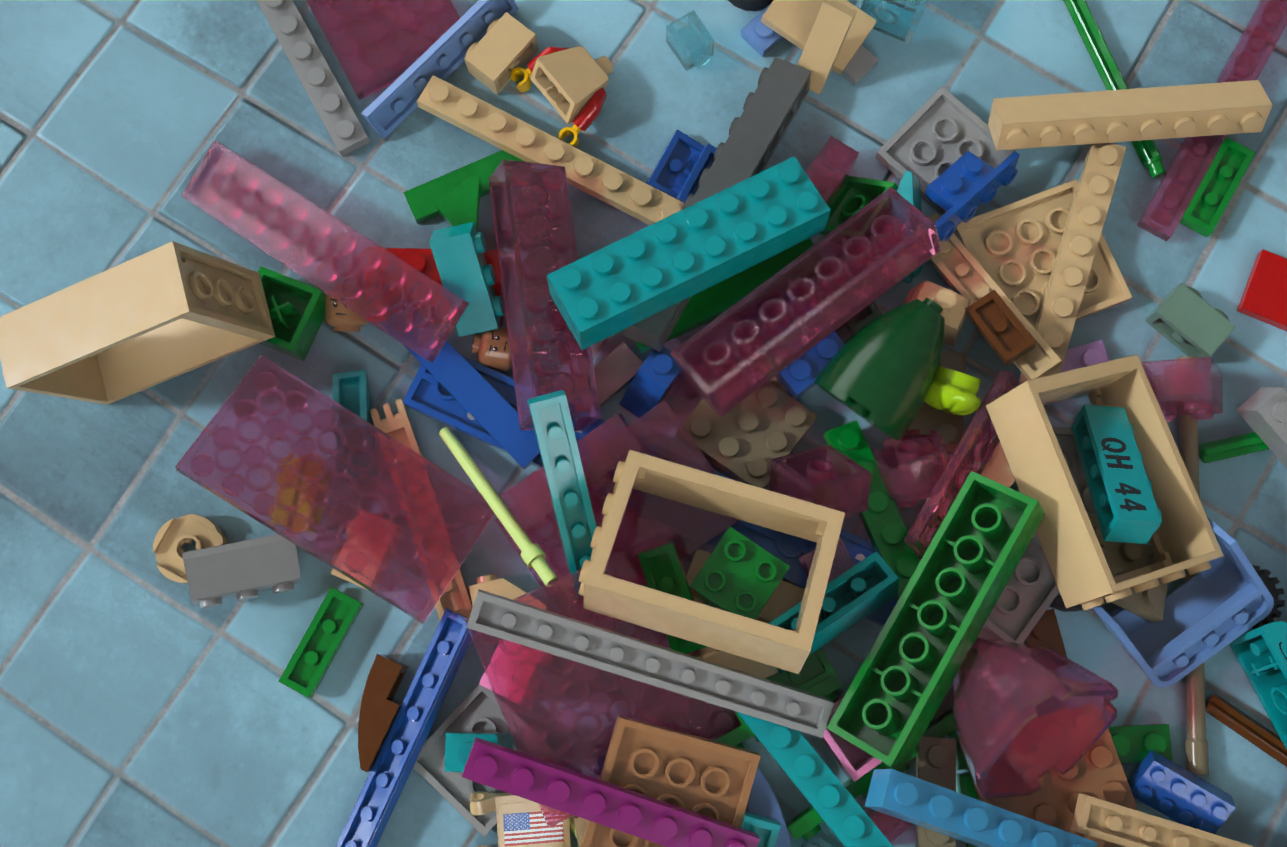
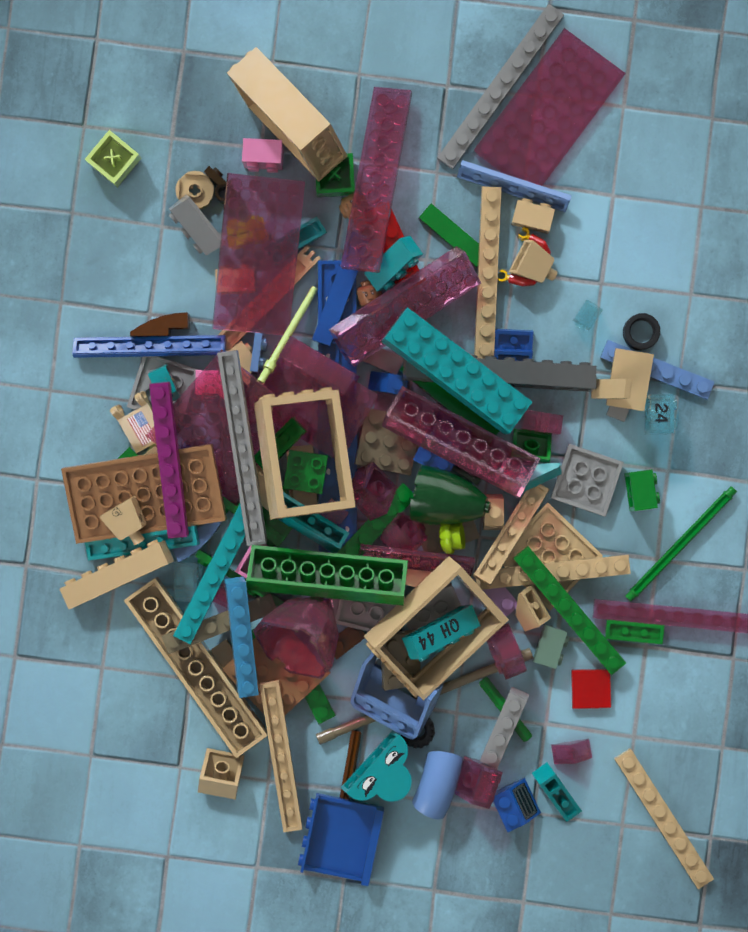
camera: 60 degrees right, 10 degrees up
(62, 658) = (113, 158): none -> yellowish green brick
(184, 406) = (262, 154): none -> bright pink brick
(195, 502) = (216, 176): none -> dark brown plate
(321, 642) = (180, 280): green plate -> none
(462, 203) = (433, 240): green slope -> none
(494, 560) = (259, 345): none -> medium blue plate
(564, 475) = (311, 364): teal plate -> none
(966, 187) = (566, 497): blue bracket -> none
(999, 71) = (641, 490): none -> green brick
(1000, 327) = (494, 546): reddish brown plate -> none
(1125, 323) = (530, 609): none -> tan slope
(1128, 115) = (646, 566): tan brick -> none
(1147, 262) = (569, 610): none -> green plate
(1180, 794) = (303, 732): blue piece -> none

